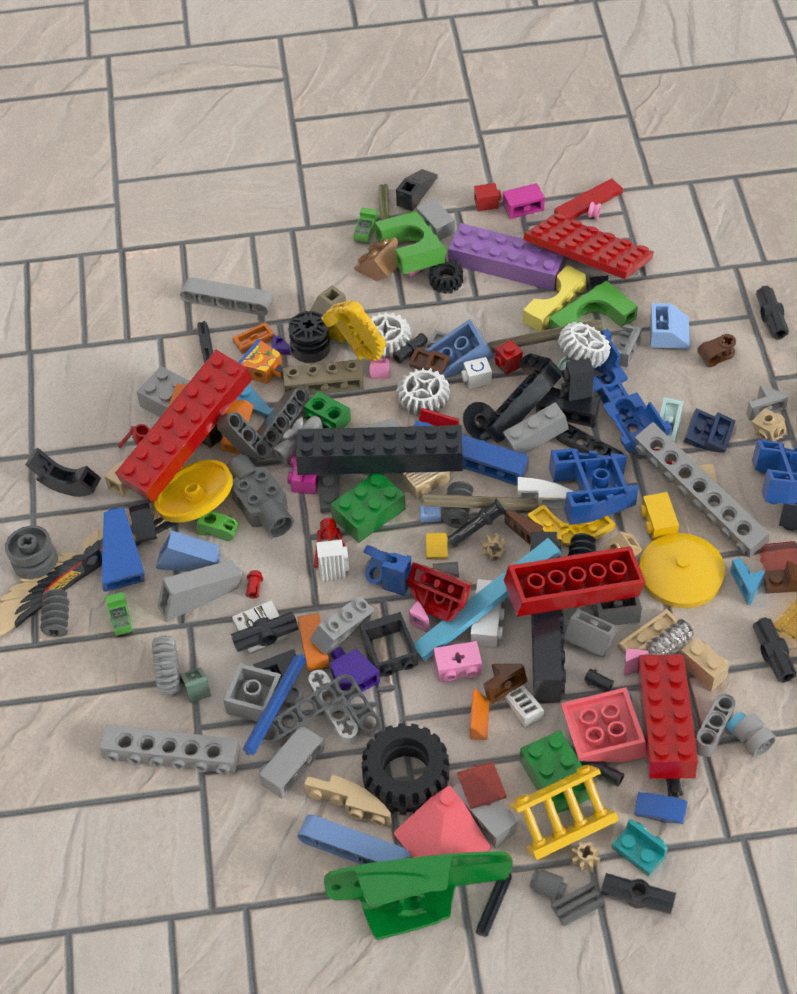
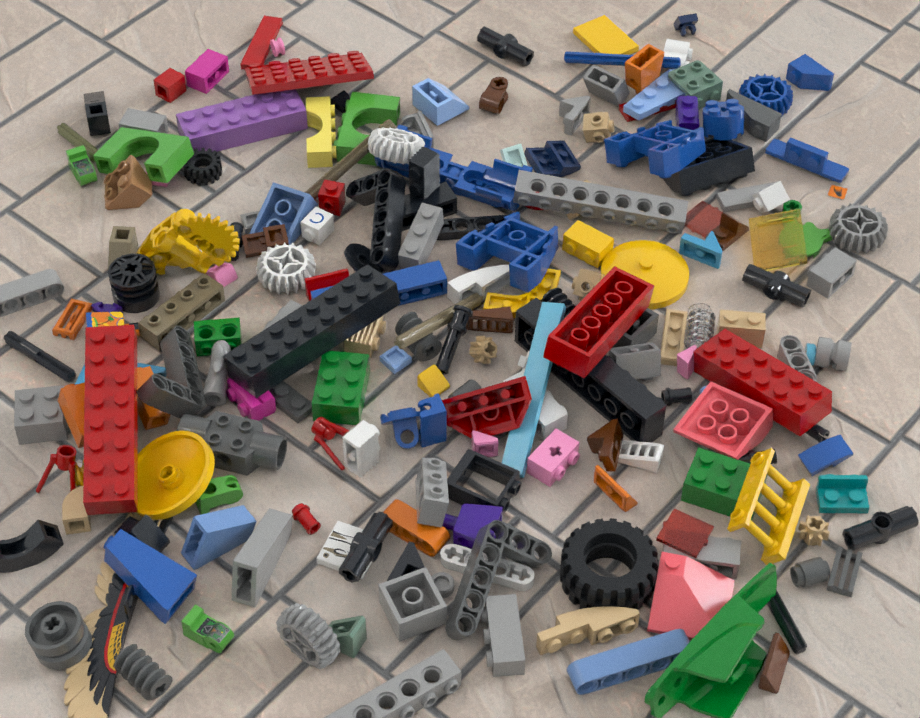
camera: 45 degrees left, 5 degrees down
(274, 705) = (450, 595): blue axle -> none
(449, 927) = (774, 665): none -> reddish brown slope

